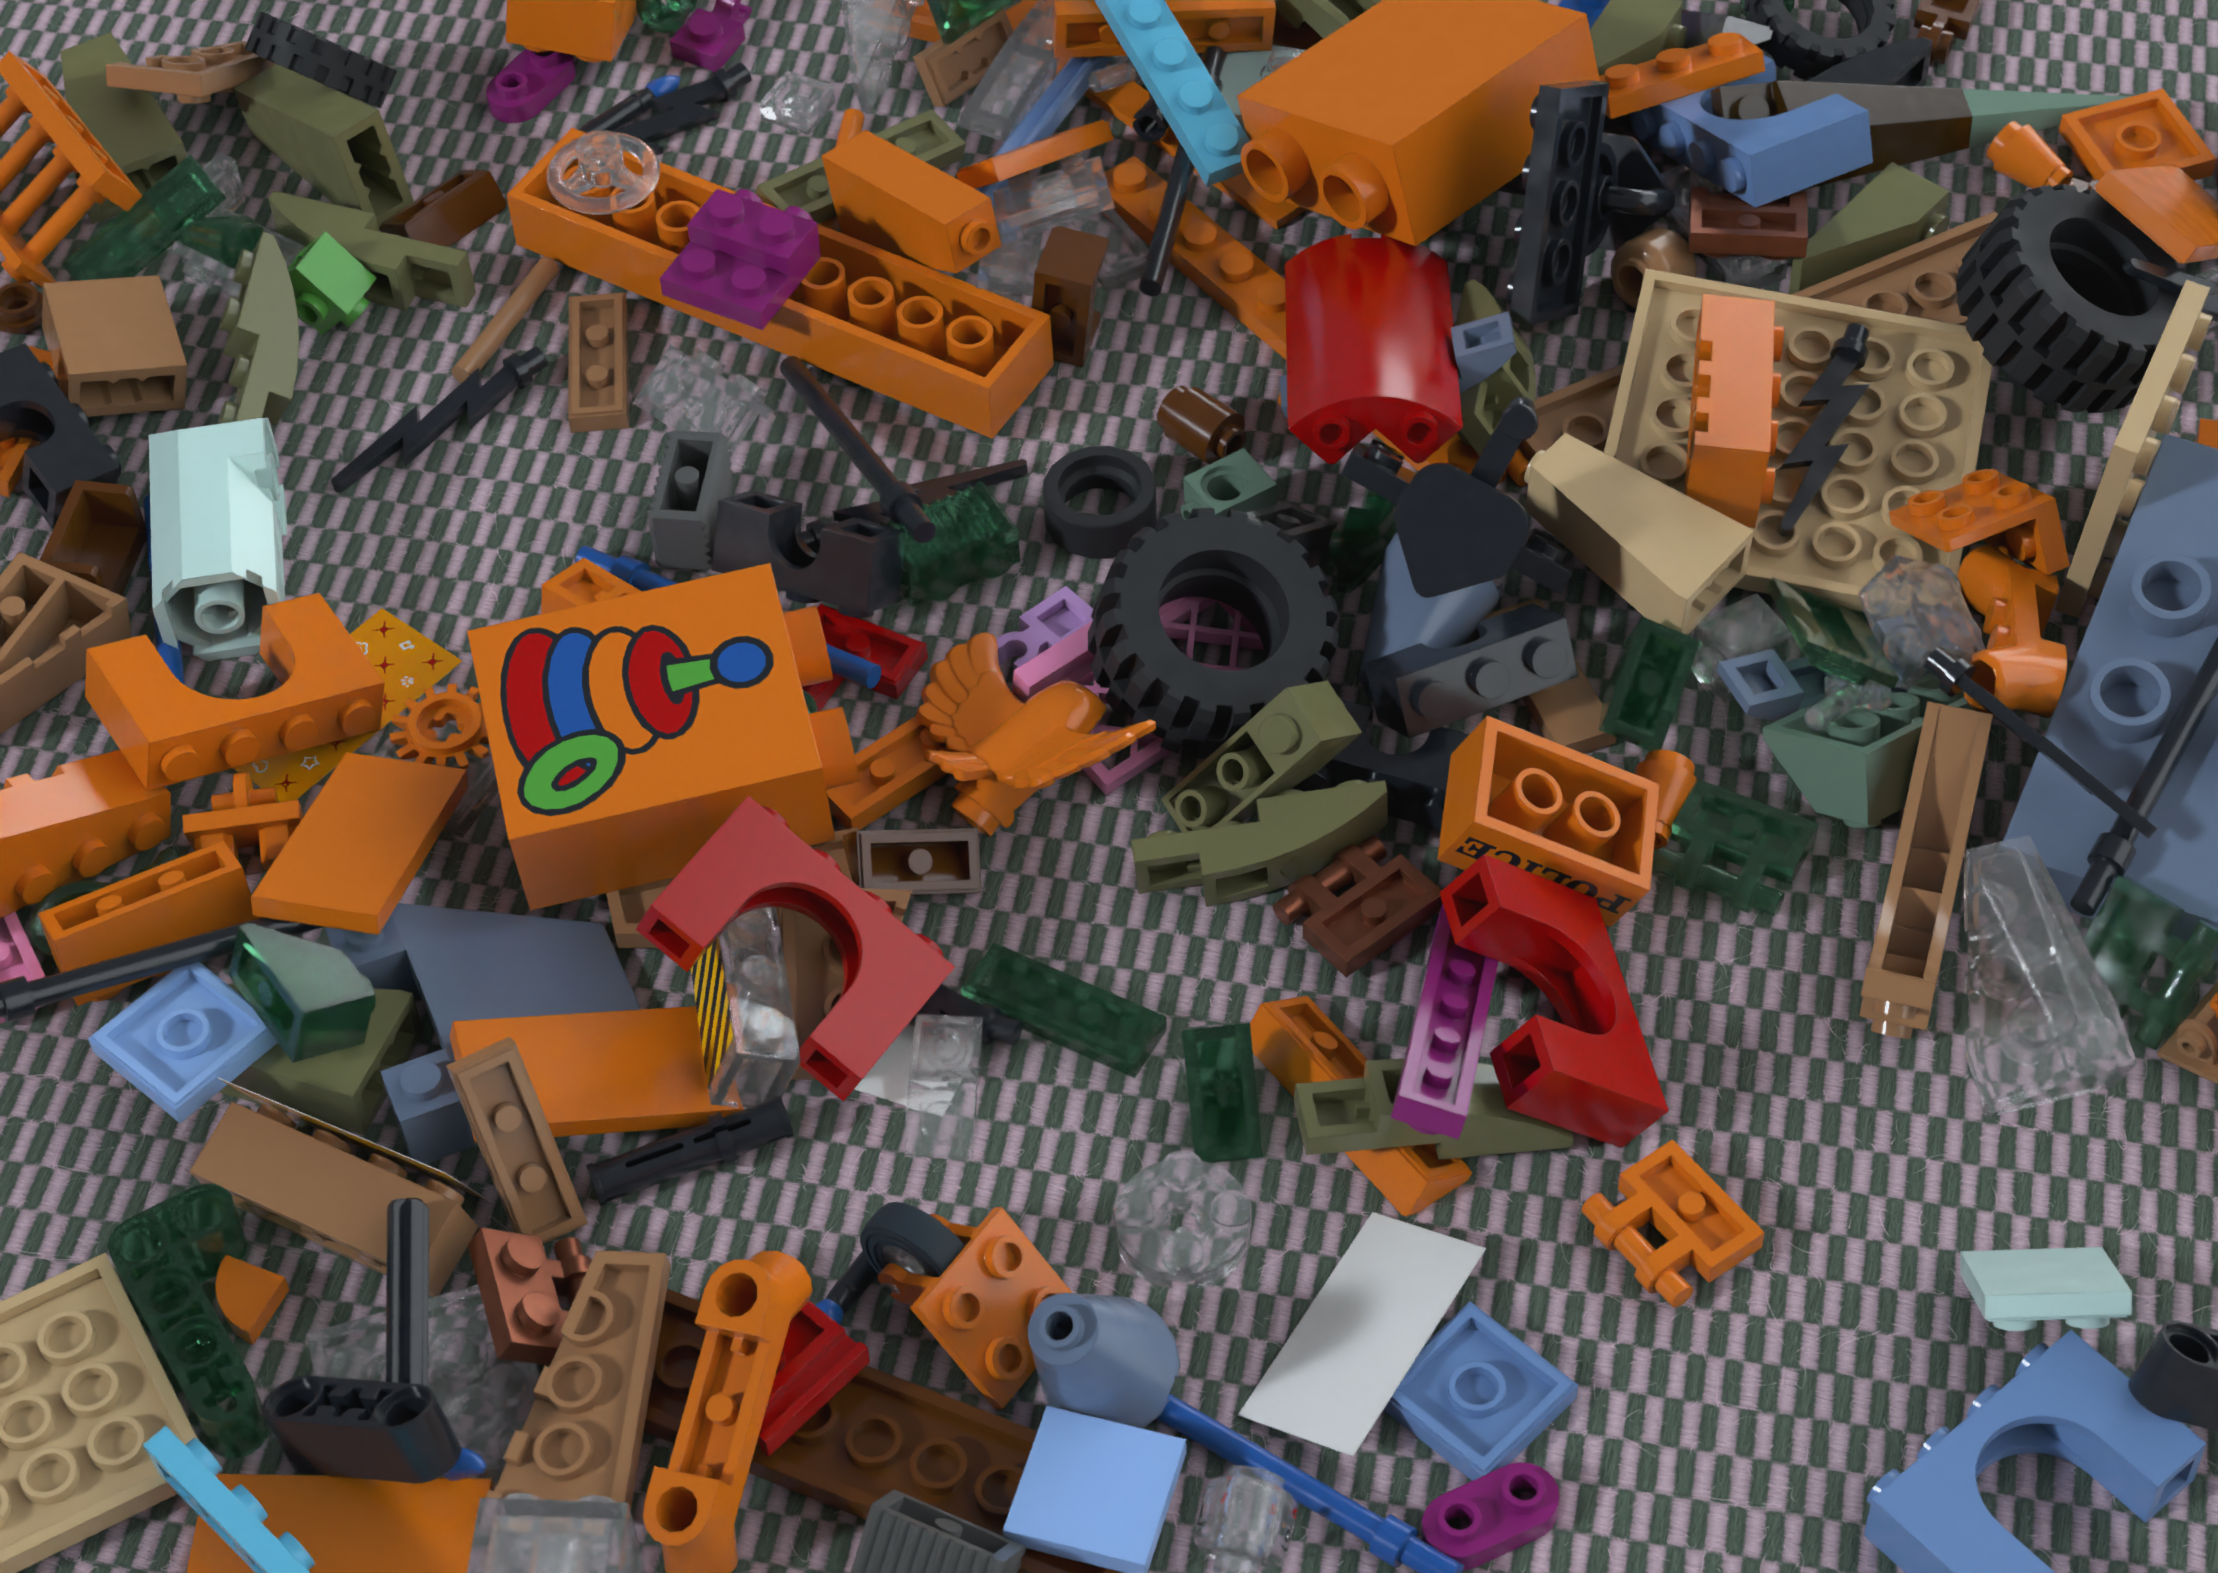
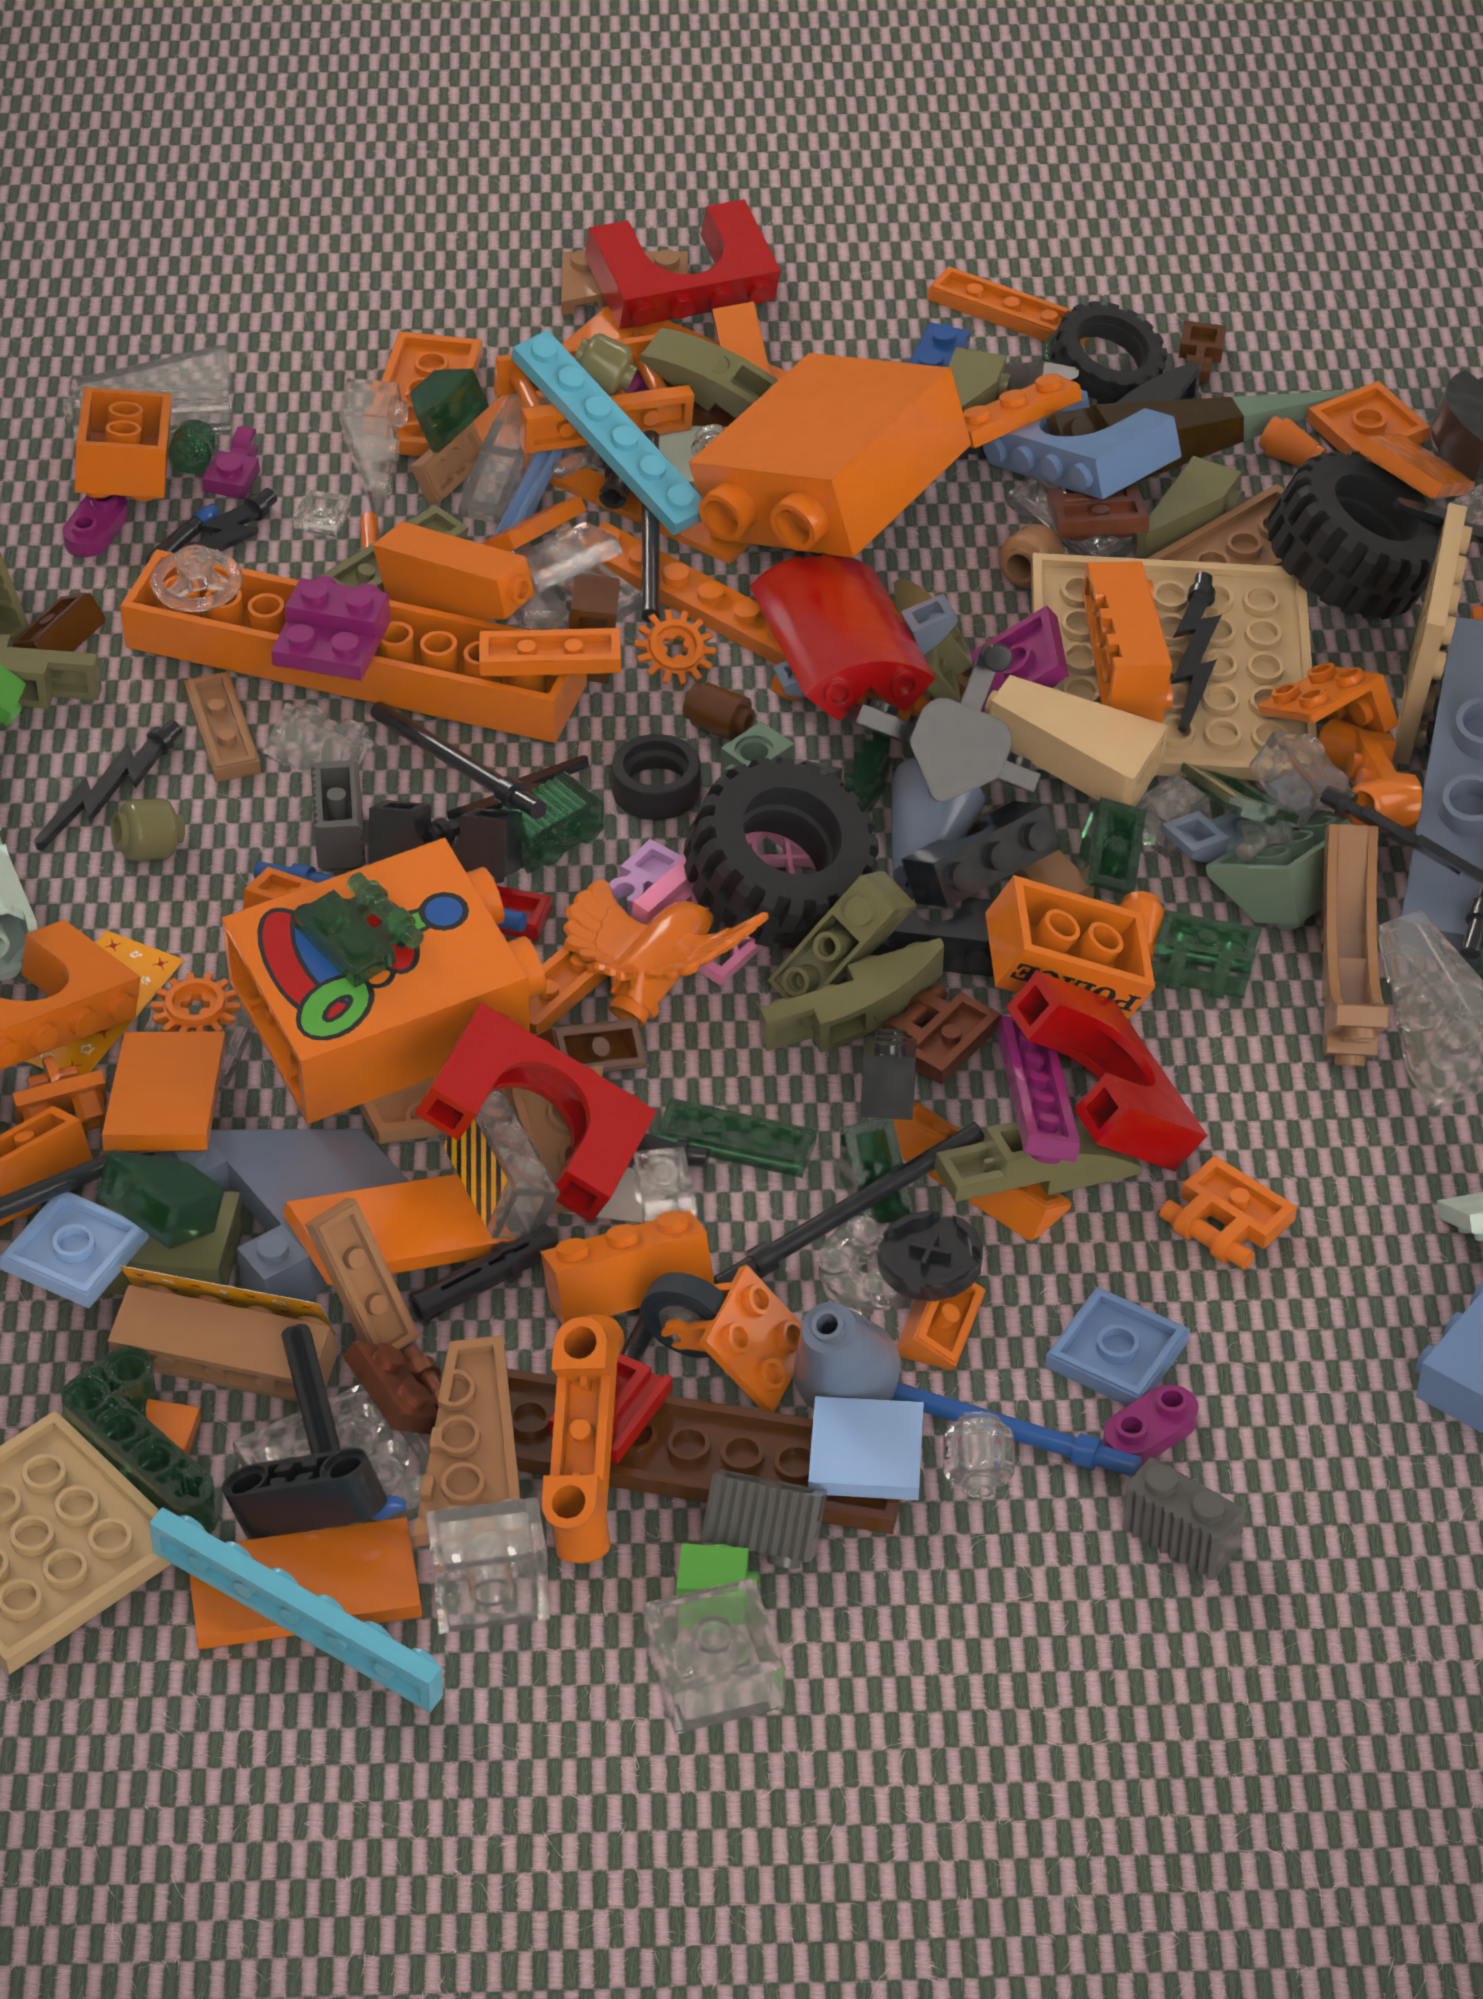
camera: 15 degrees left, 5 degrees down
(462, 486) = (147, 829): none -> olive head
(506, 318) = (136, 704): medium nougat bar -> none
(607, 682) = (347, 939): none -> clear green plate
(841, 1176) = (617, 1267): none -> orange brick
(997, 324) = (549, 652): none -> orange plate
(1049, 1187) = (765, 1257): none -> black bar
(1169, 310) = (669, 631): none -> orange gear
(1255, 1226) = (930, 1256): none -> black tile
(1255, 1311) = (940, 1328): none -> orange slope
(1262, 966) = (888, 1075): none -> black arch
(1362, 1333) = (1024, 1320): white sticker -> none
(1580, 196) = (976, 507): black plate -> none
(1596, 405) = (1035, 651): none -> magenta plate

